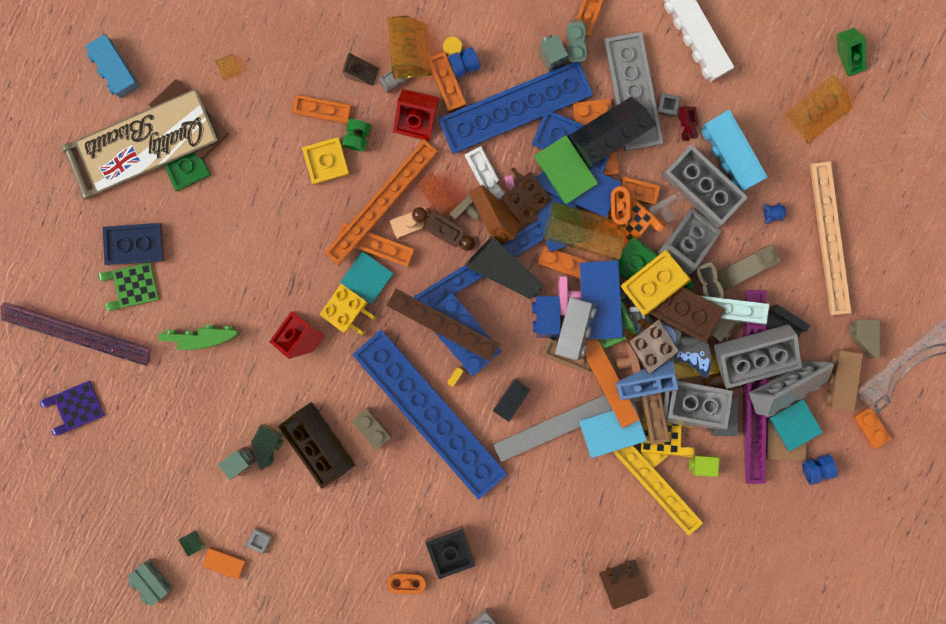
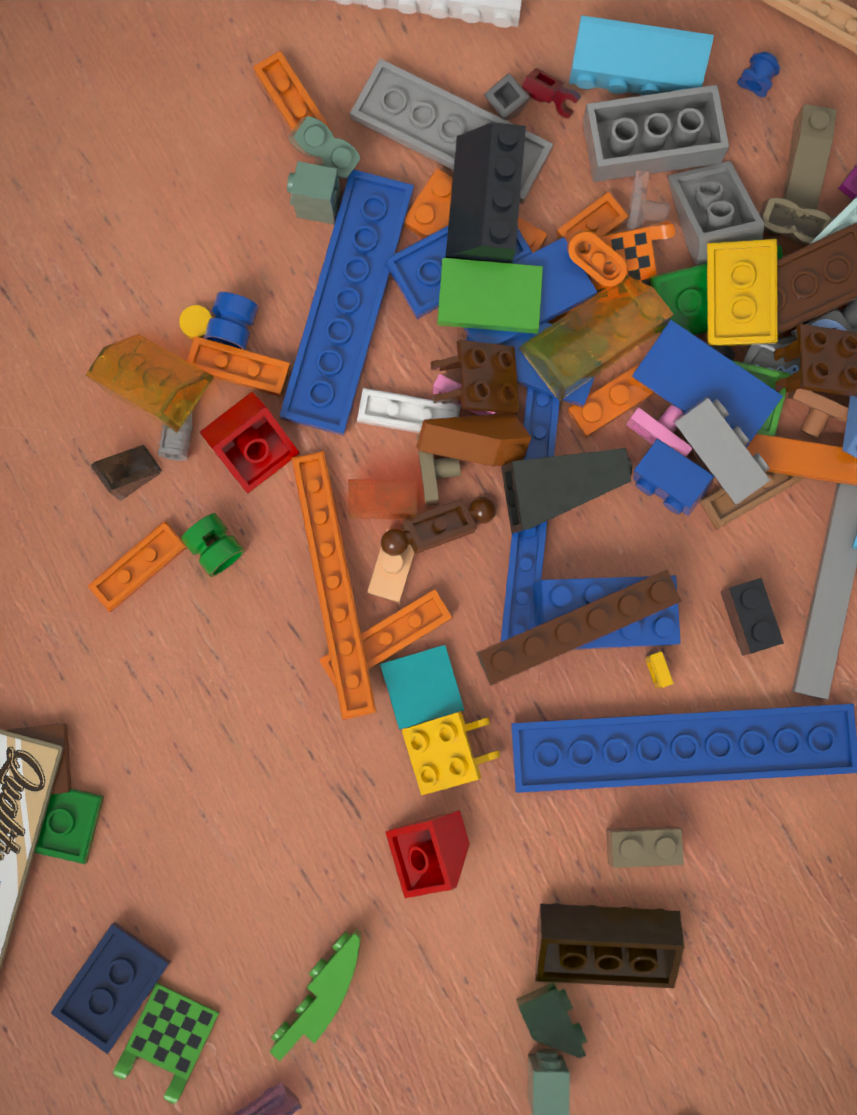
camera: 50 degrees left, 5 degrees down
(325, 160) = (213, 616): yellow plate -> none

